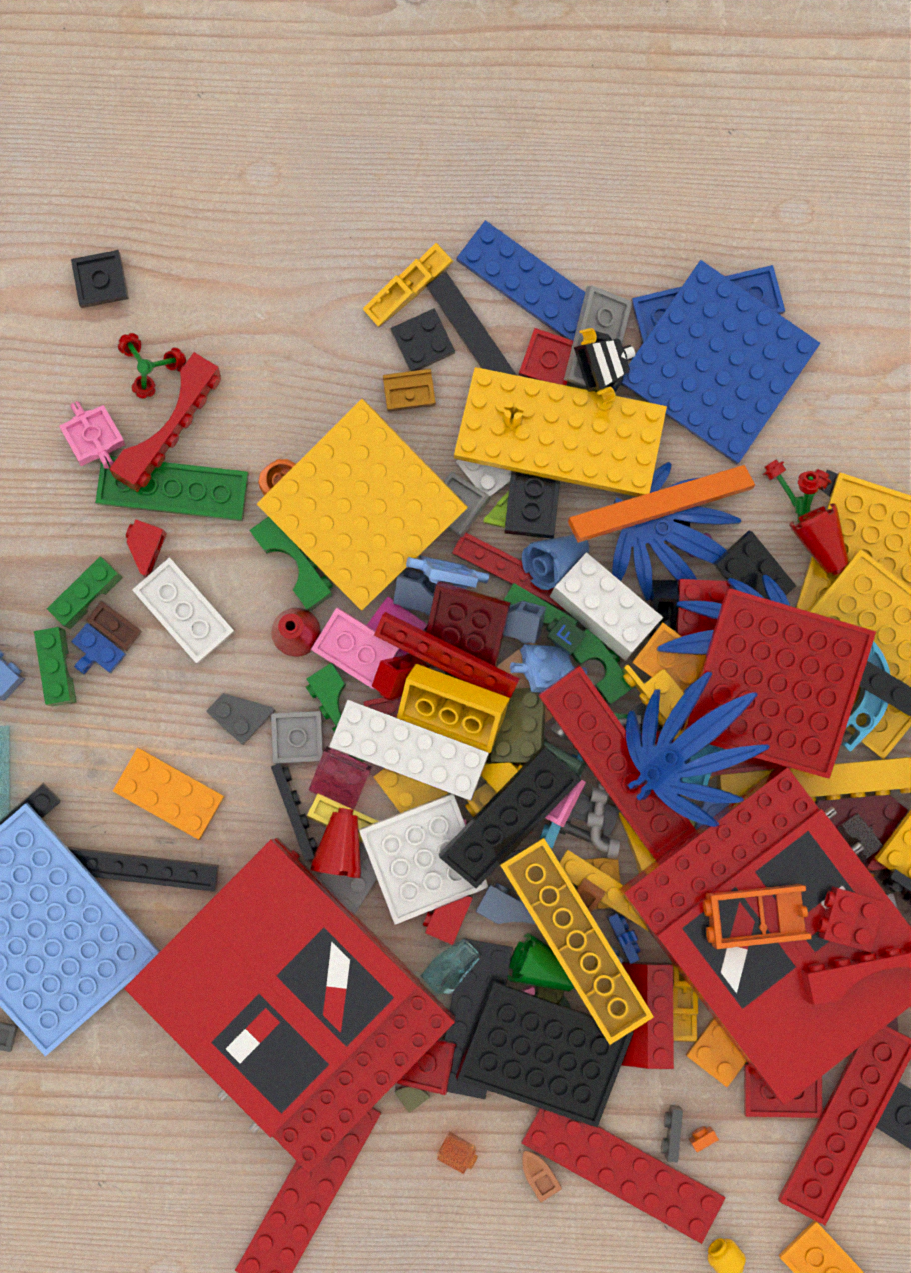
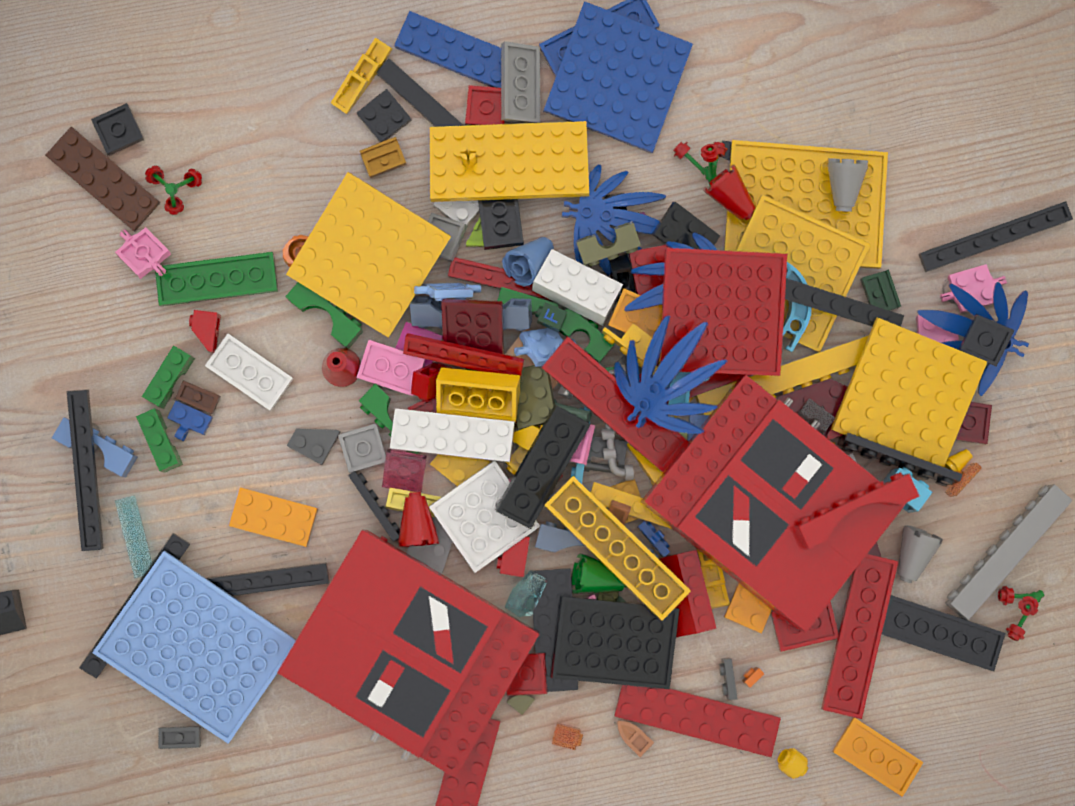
camera: 20 degrees left, 0 degrees up
(67, 334) = (102, 179): none -> reddish brown plate
(138, 462) = (184, 265): red arch -> none
(603, 362) = (528, 99): torso -> none
(660, 503) = (599, 197): orange tile -> none
(679, 565) = (592, 251): none -> olive arch
(789, 911) = (773, 483): orange door -> none
(850, 919) = (821, 477): red plate -> none

